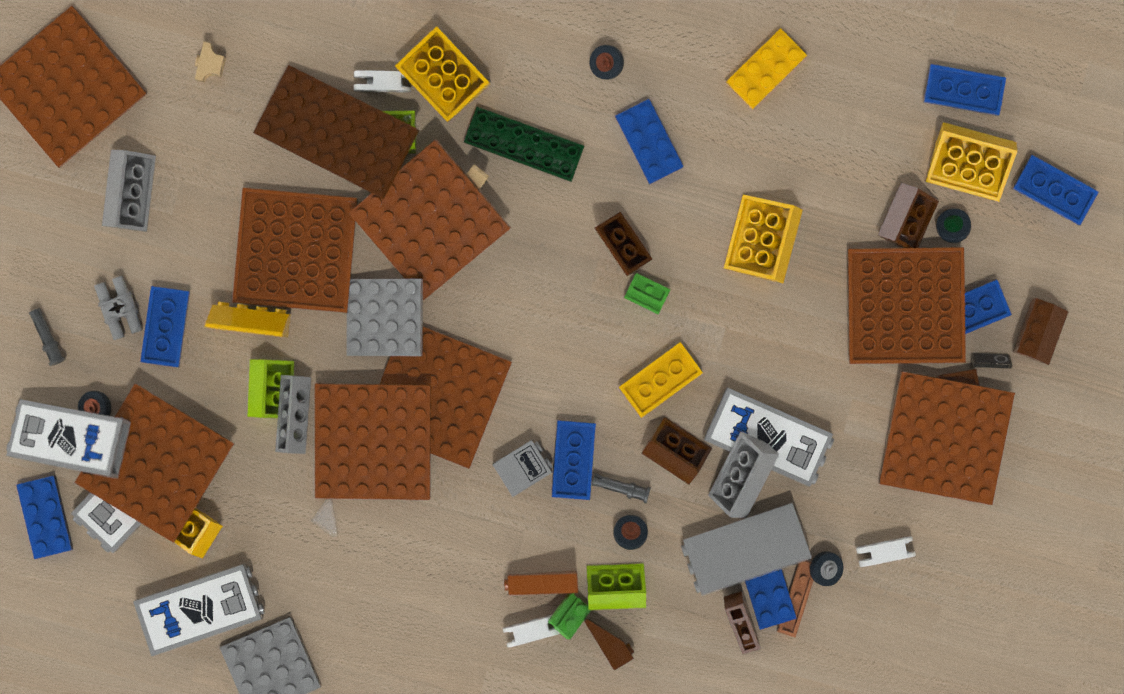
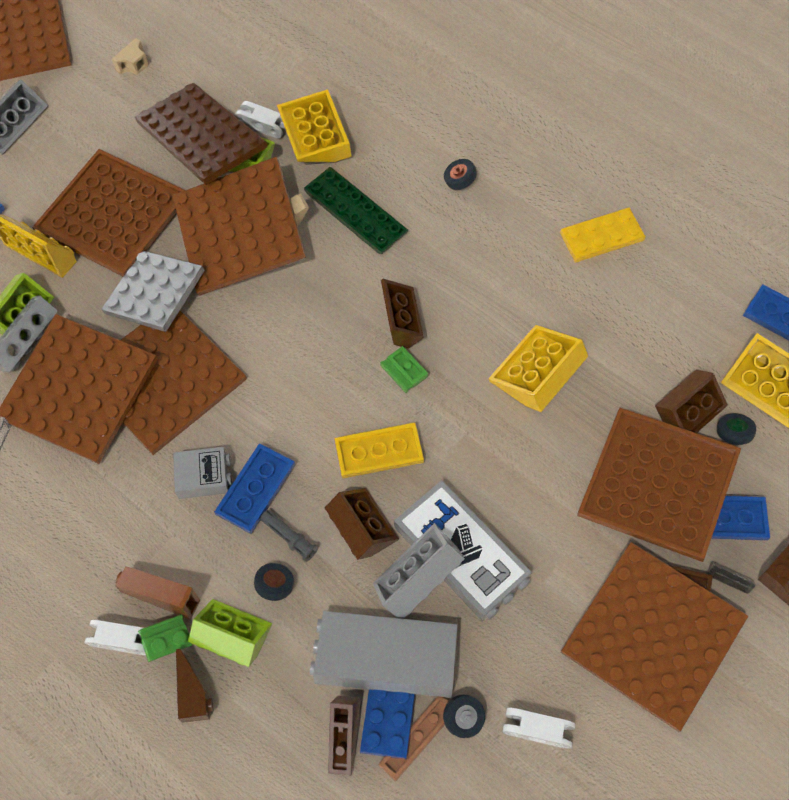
camera: 25 degrees right, 25 degrees down
(649, 141) = (468, 250): blue plate -> none

